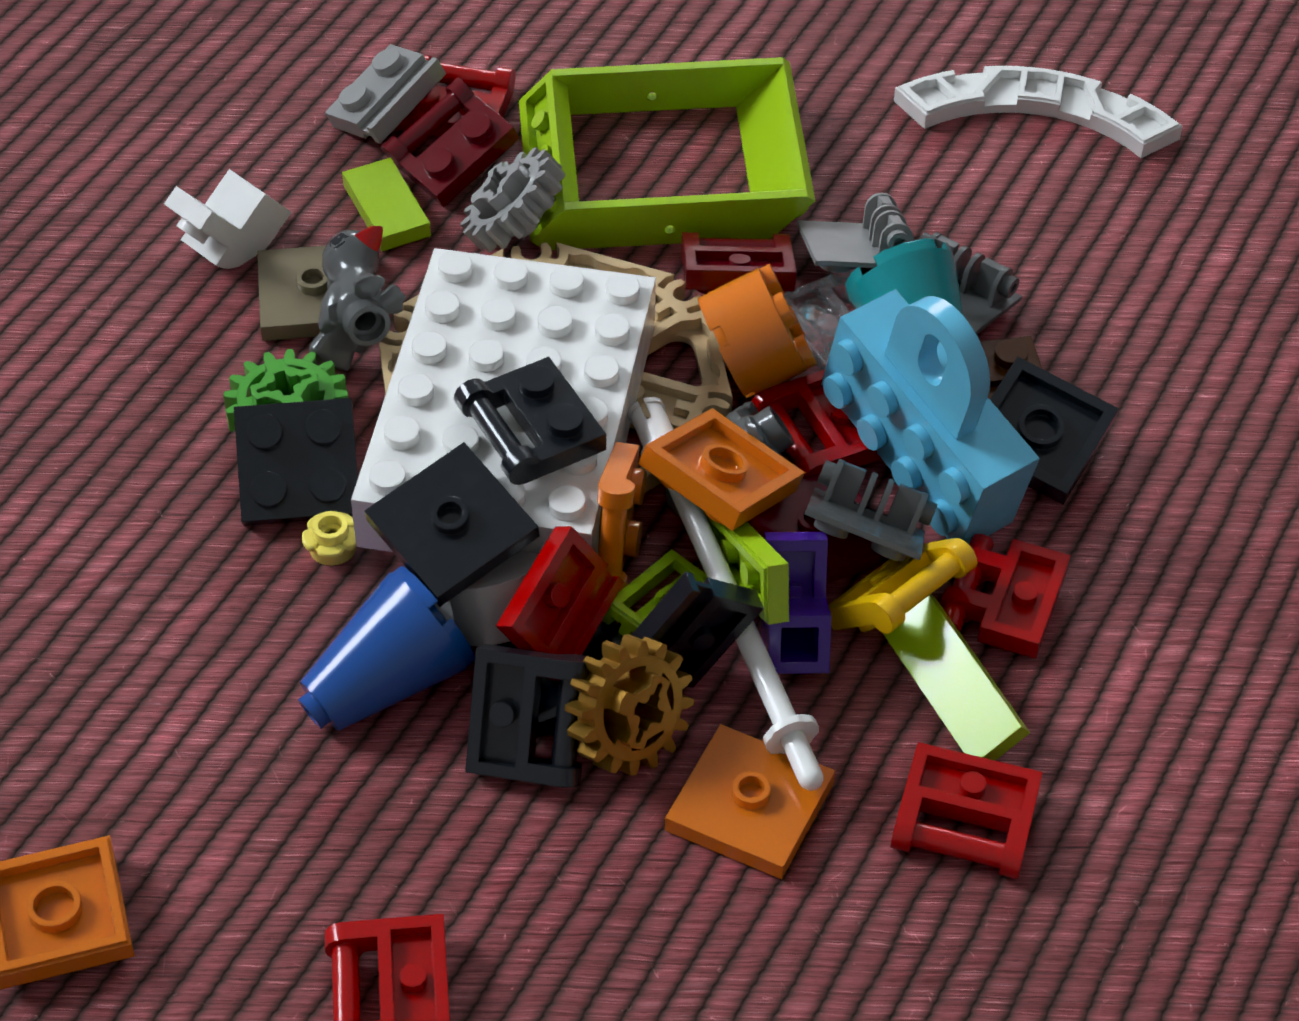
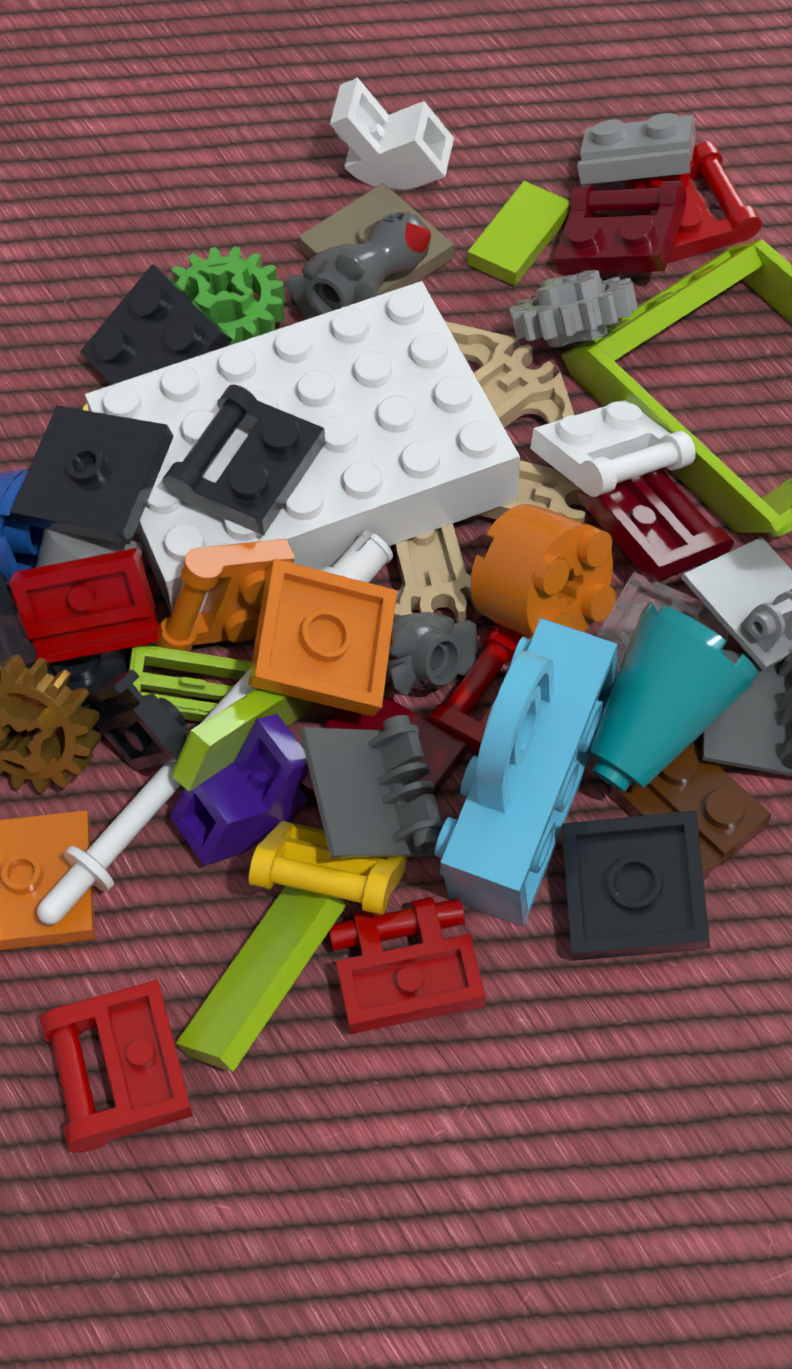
camera: 60 degrees right, 10 degrees up
(650, 240) = (610, 447): none -> white plate

